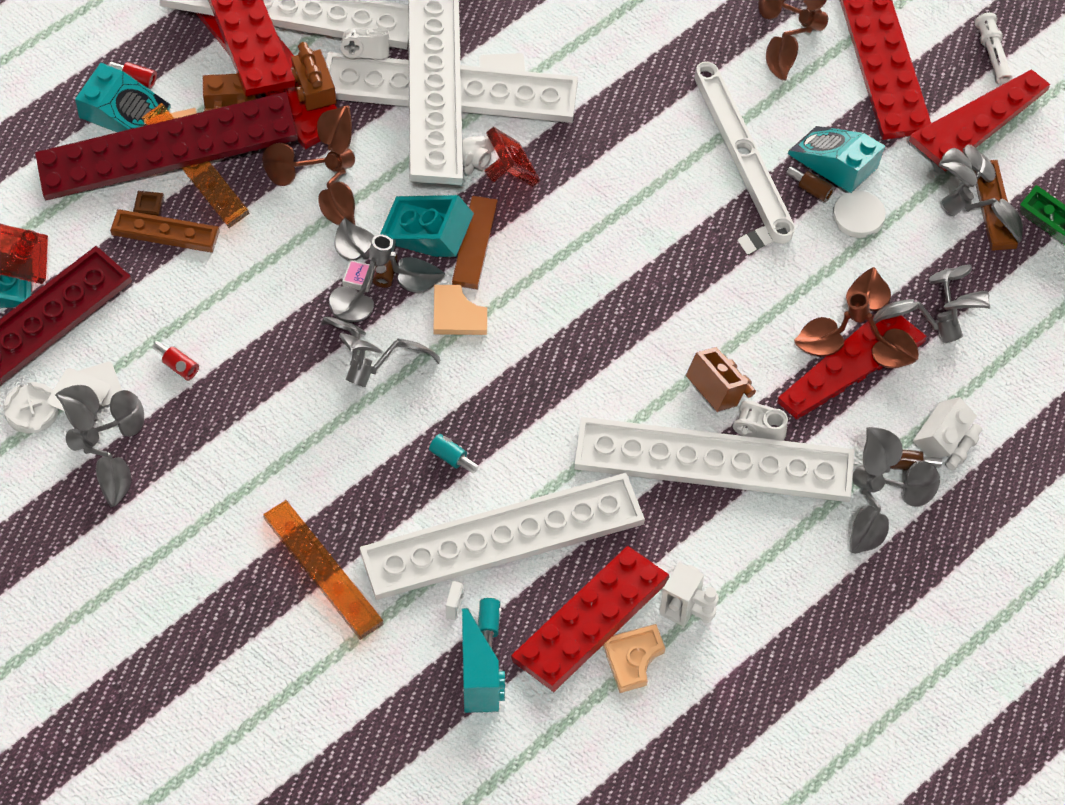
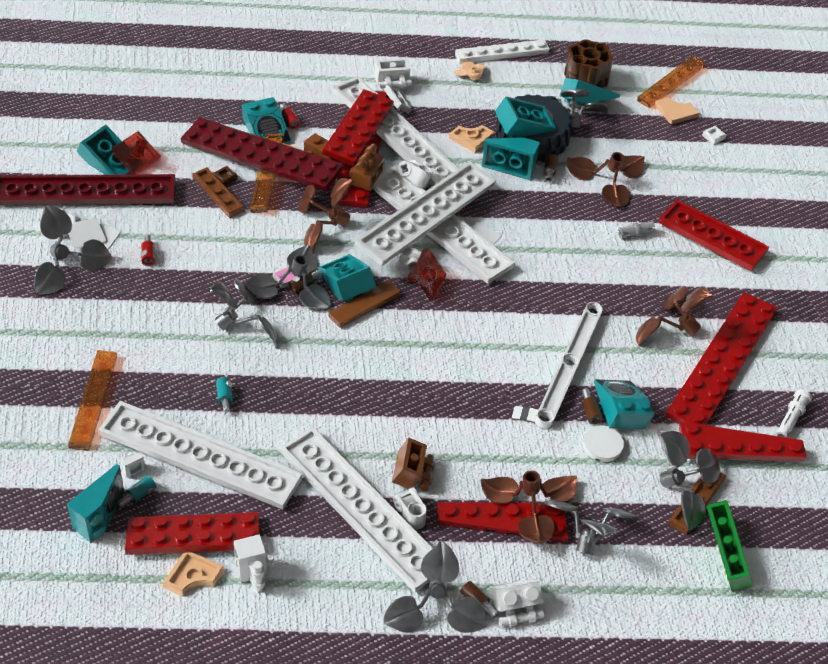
camera: 40 degrees right, 10 degrees down
(456, 314) = (313, 330): light nougat tile -> none

